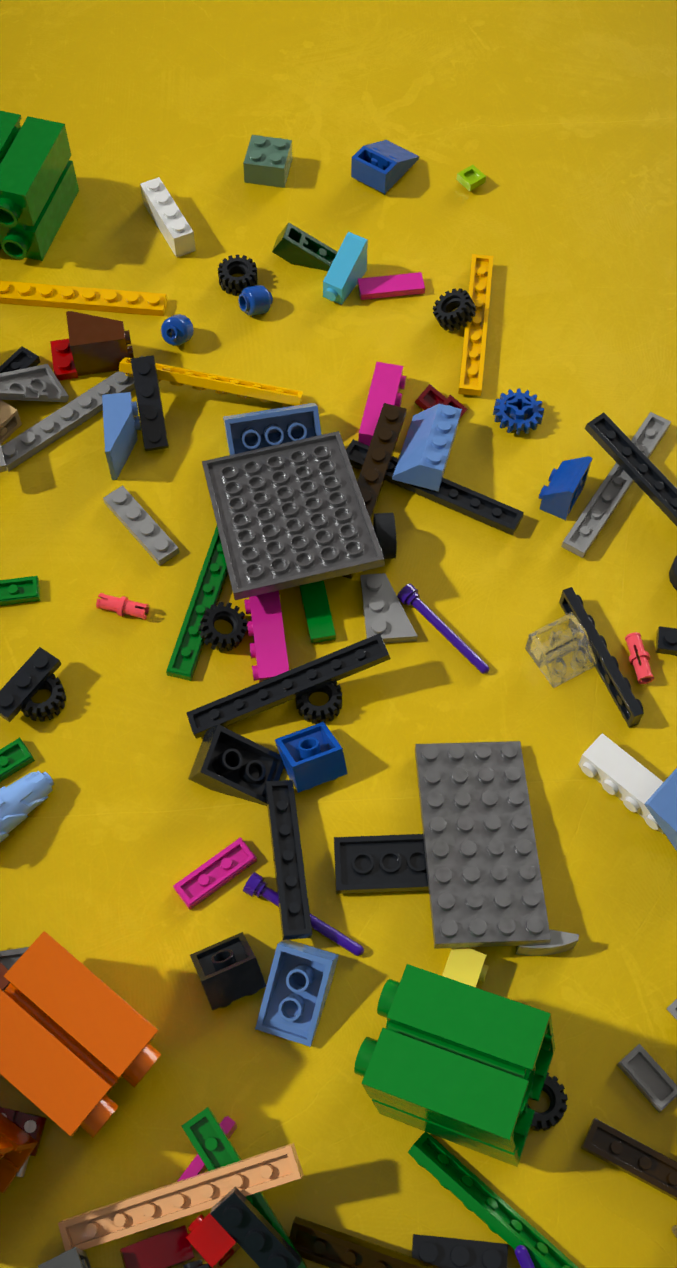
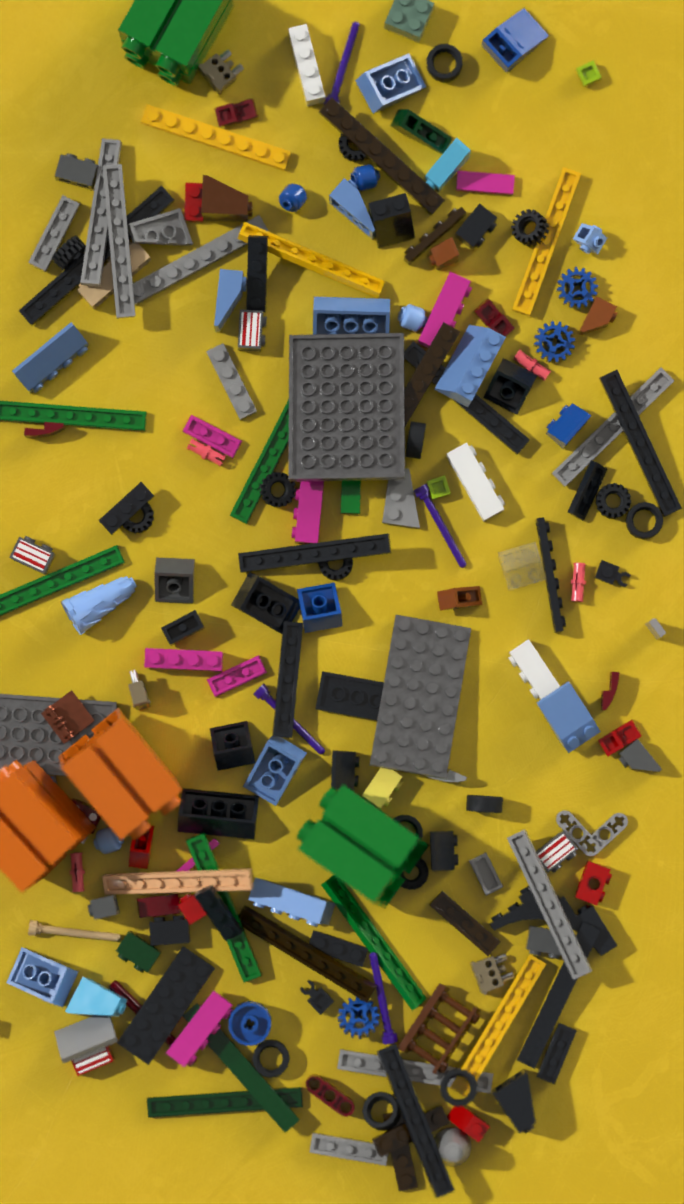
camera: 15 degrees right, 25 degrees up
(17, 1227) = (77, 872): none -> coral pin
(61, 1160) = (107, 841): none -> light blue head
(71, 240) = (216, 78): none -> dark tan piece
(76, 922) = (138, 692): none -> dark tan piece
(102, 273) = (236, 113): none -> dark red slope
(105, 764) = (174, 580): none -> dark grey slope
(114, 1159) = (141, 850): none -> red slope
(126, 820) = (183, 628): none -> black brick
(128, 586) = (212, 436): none -> dark pink tile
(134, 864) = (183, 659): none -> dark pink brick
(153, 465) = (250, 330): none -> brick
(203, 244) = (343, 64): none -> dark purple piece
(224, 1078) = (218, 813): none -> black slope
(248, 323) = (349, 202): none -> medium blue slope
(260, 218) = (390, 83): none -> medium blue slope
(269, 275) = (381, 156): none -> dark brown plate
(295, 324) = (391, 220): none -> slope
(316, 182) = (449, 49): none -> black tyre
(345, 417) = (412, 317): none -> light blue head
(348, 339) = (428, 240): none -> dark brown plate
(366, 347) = (444, 254): none -> dark orange slope
(368, 1191) = (292, 902): none -> light blue wedge
(393, 322) = (476, 227): none -> black brick
(393, 954) = (344, 769): none -> black slope
(428, 586) = (438, 487): none -> lime plate
(472, 570) = (475, 482): none -> white brick
(481, 464) = (510, 386): none -> black slope
(492, 706) = (459, 598): none -> dark orange slope
(499, 440) = (531, 365): none -> coral pin
(524, 307) = (590, 238): none -> light blue brick
(526, 357) = (582, 293): none -> blue gear
(560, 378) = (598, 316): none -> dark orange slope
(576, 1054) = (442, 850): none -> black slope
(612, 553) = (587, 490): none -> black plate
(616, 967) = (486, 804): none -> black tyre
(651, 547) = (613, 489): none -> black tyre

